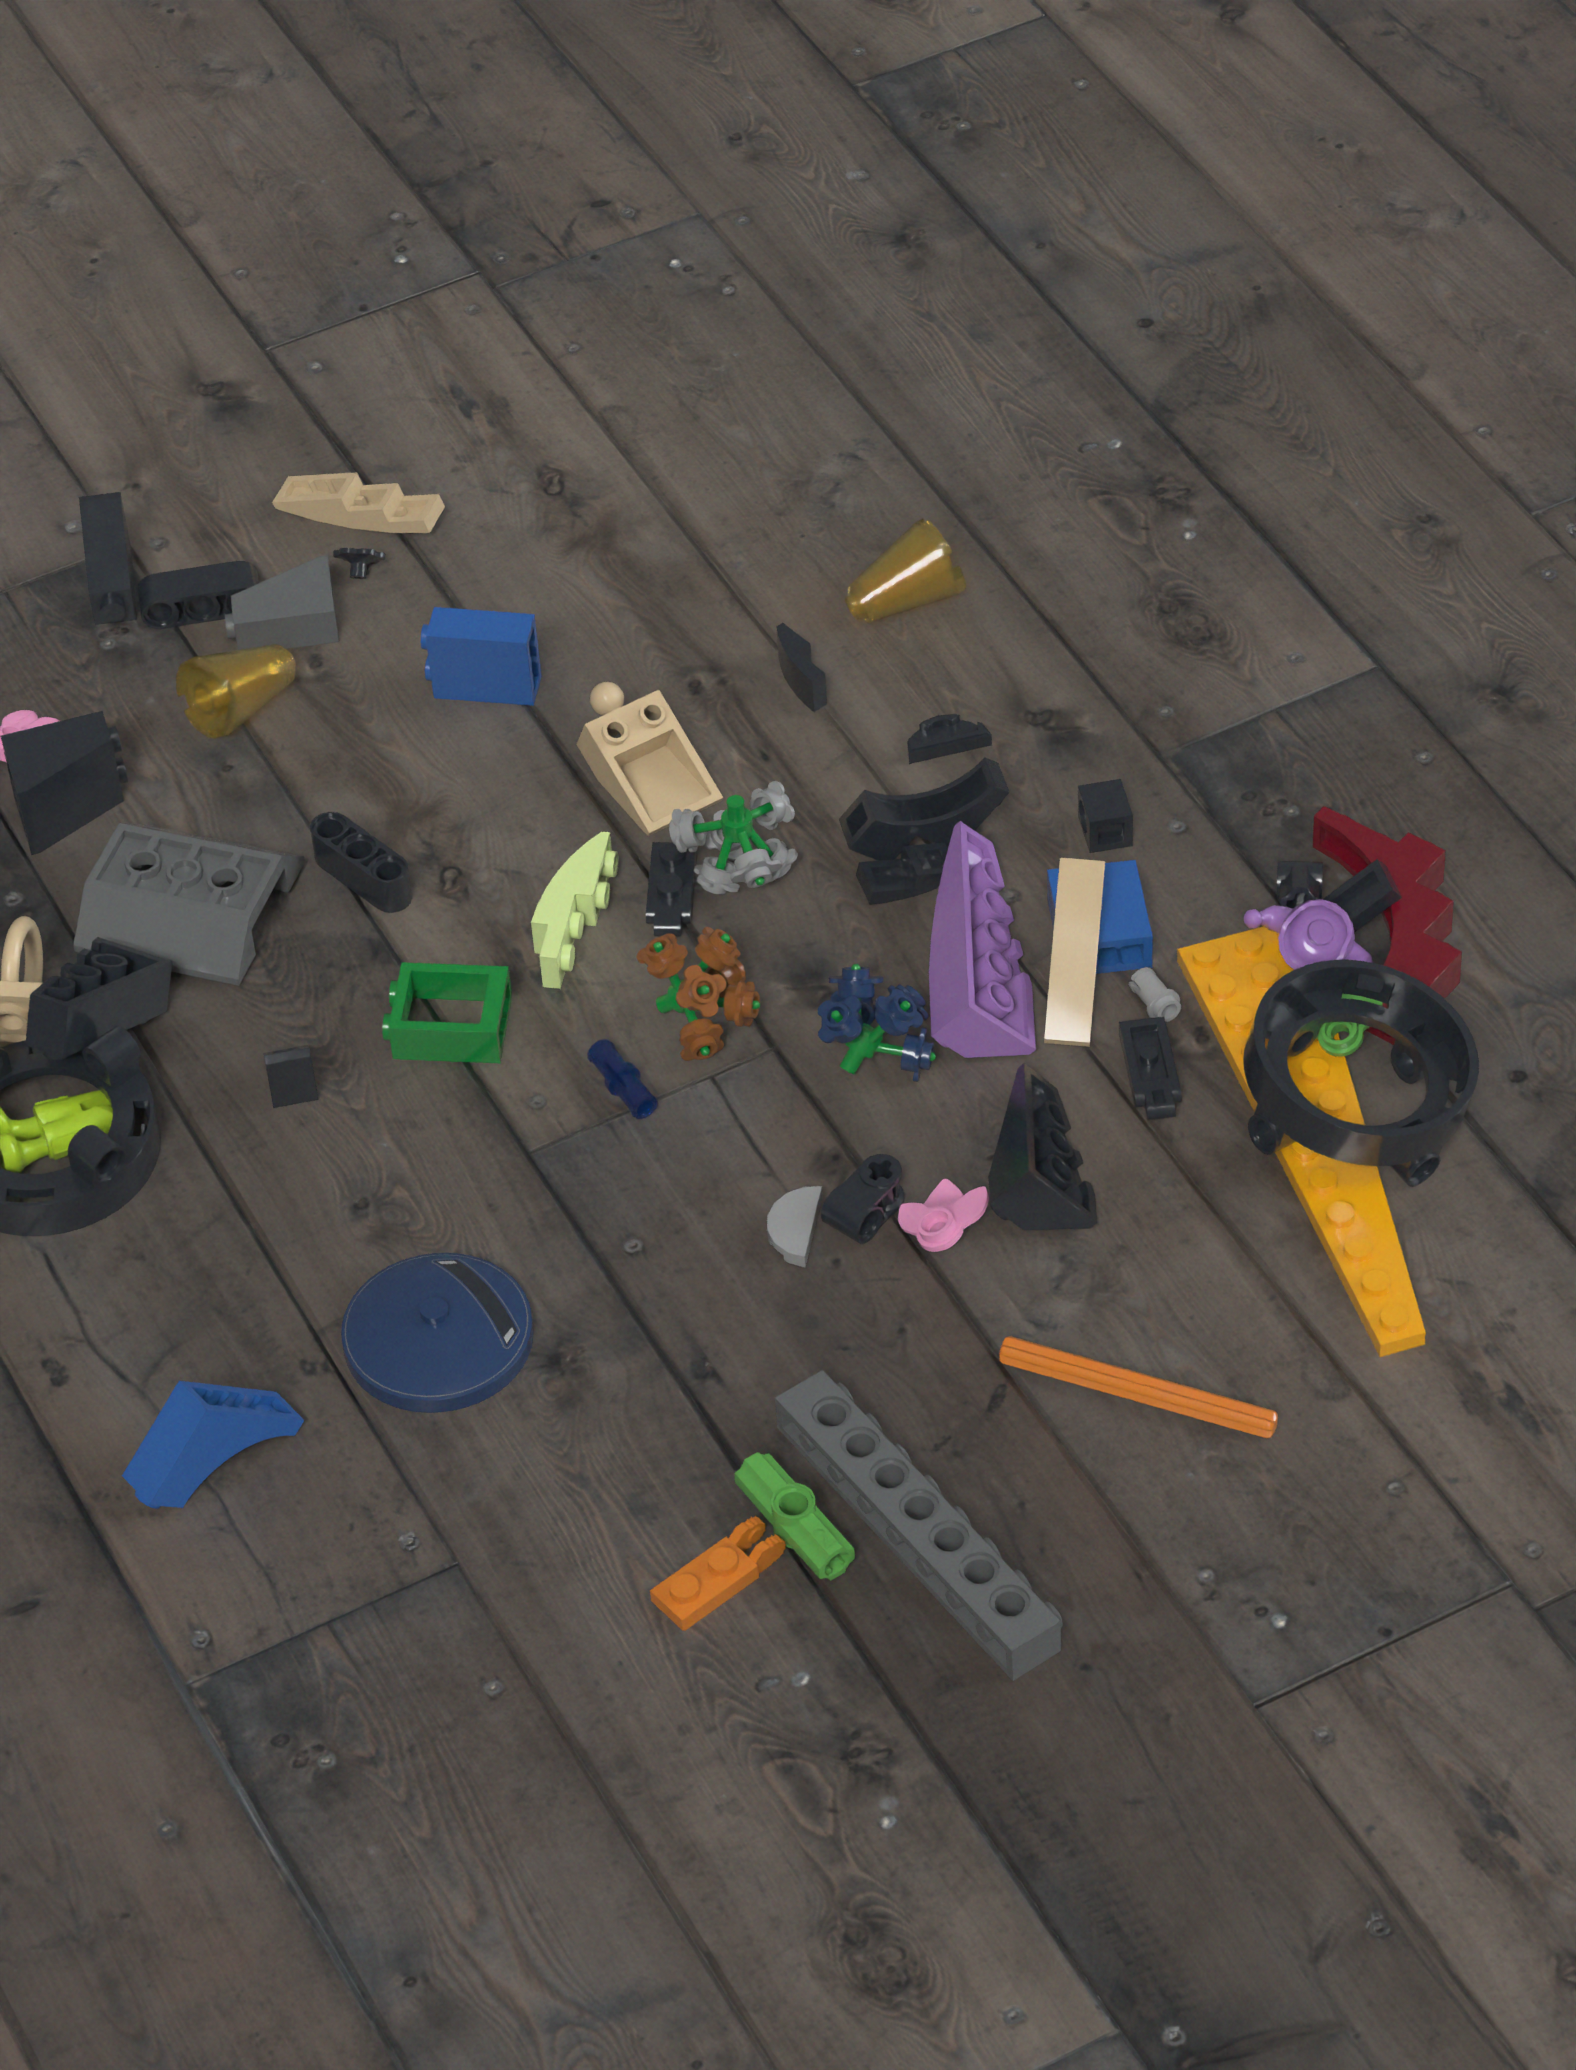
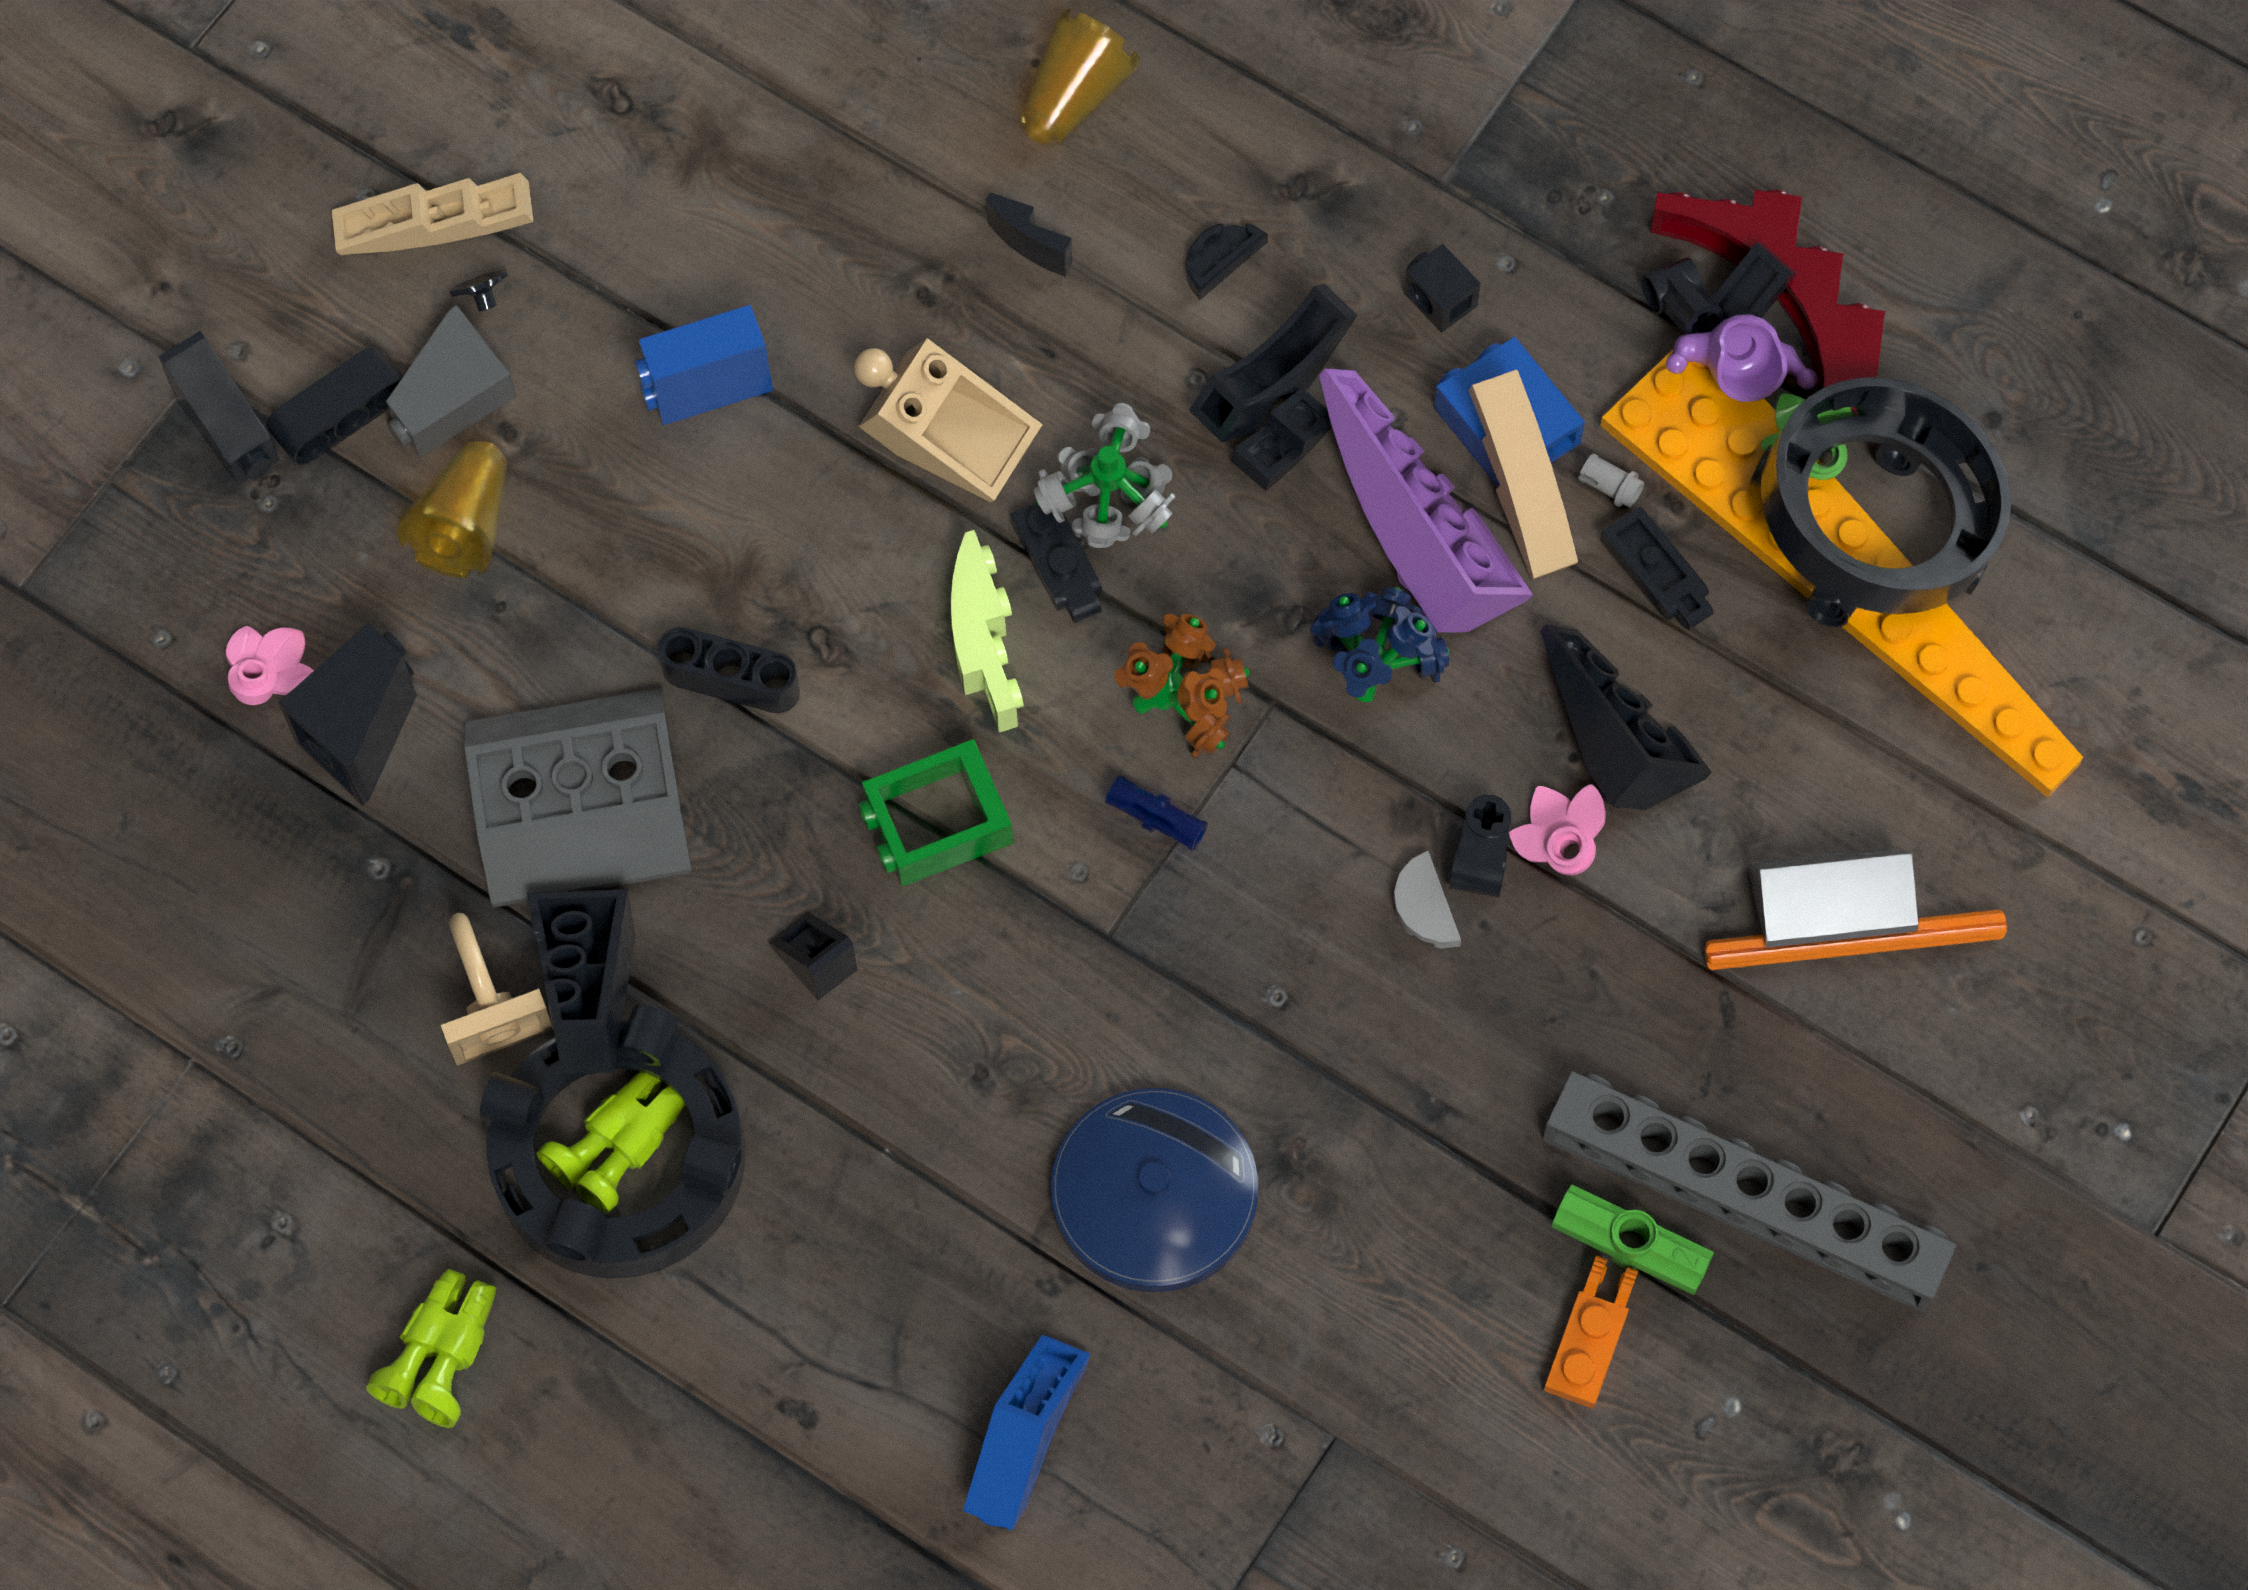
camera: 30 degrees left, 20 degrees up
(1135, 1340) = (1835, 896): none -> slope

